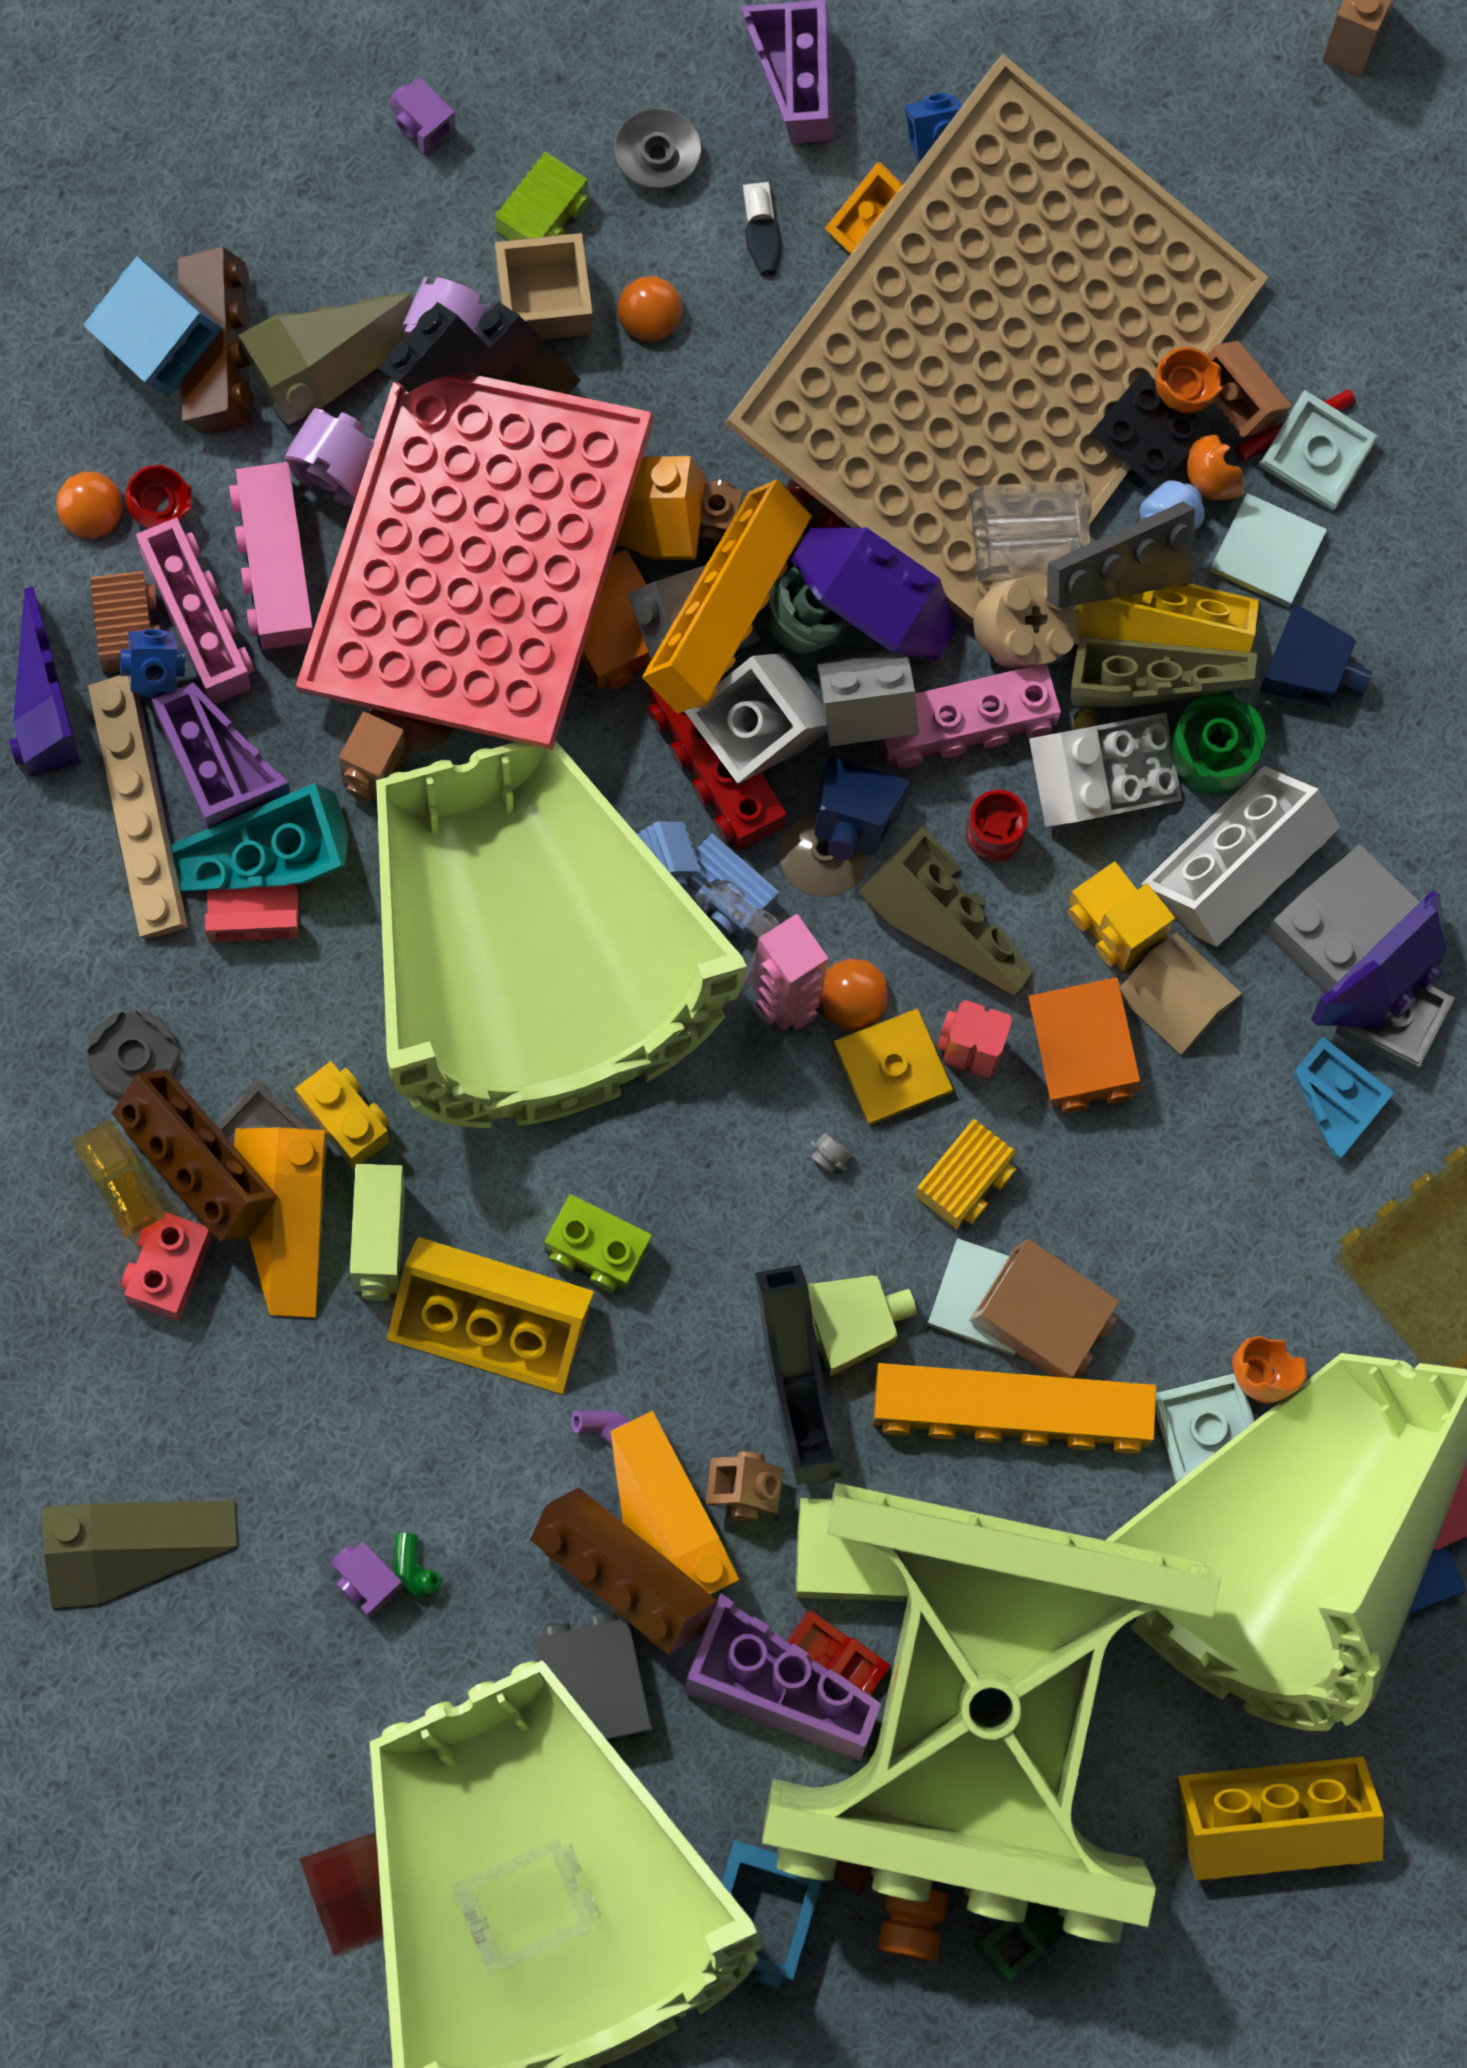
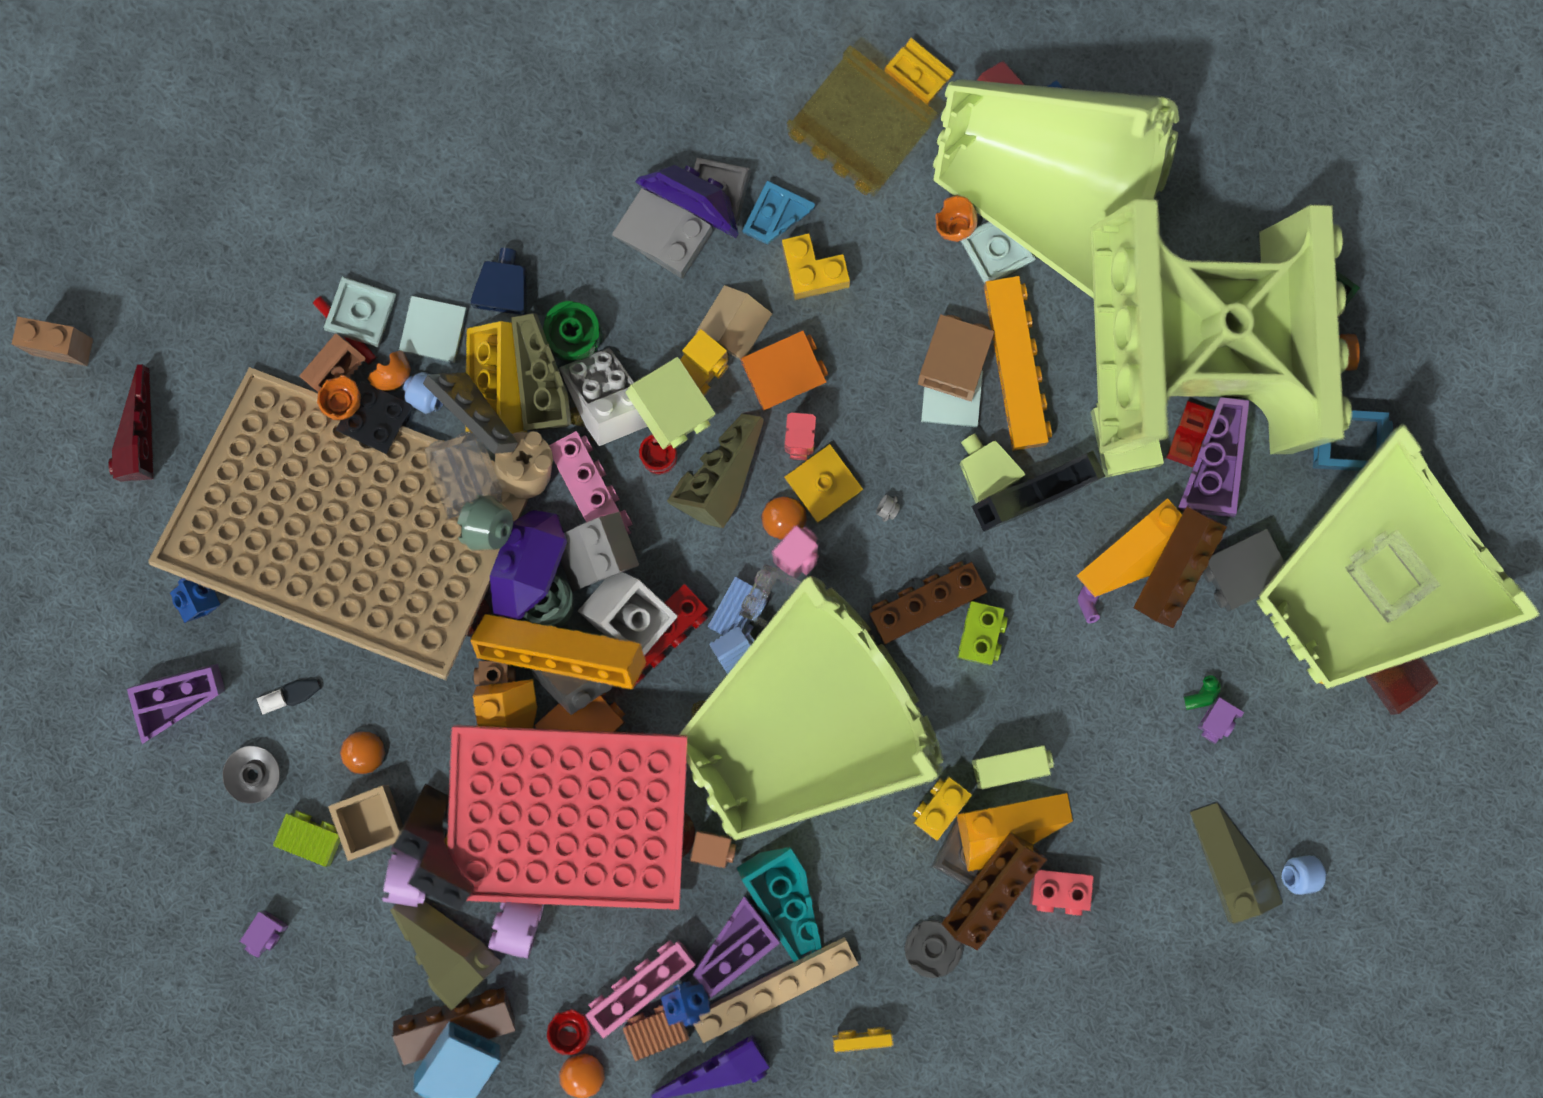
camera: 90 degrees left, 10 degrees up
(23, 924) = (873, 1038): none -> yellow plate
(86, 1647) = (1304, 875): none -> light blue head
(118, 1178) = (1020, 935): clear yellow slope -> none
(252, 914) = (826, 899): coral panel -> none
(274, 556) = (589, 948): bright pink brick -> none
(489, 1315) = (1040, 687): yellow slope -> none
(666, 1173) = (927, 603): none -> reddish brown brick
(753, 1483) = (1107, 509): medium nougat brick -> none
(813, 872) = (697, 572): dark tan dish -> none
(857, 807) = (668, 543): dark blue torso -> none
(864, 207) = (264, 628): light orange slope -> none
(946, 532) = (485, 524): none -> sand green cone
(966, 1175) = (882, 423): yellow brick -> none
(1067, 849) = (670, 404): none -> yellowish green brick
(1191, 95) = (133, 442): none -> dark red wedge
(1231, 1116) = (809, 275): none -> yellow brick
(1243, 854) = (638, 303): white slope -> none
(1281, 1818) = (1218, 158): yellow slope -> none

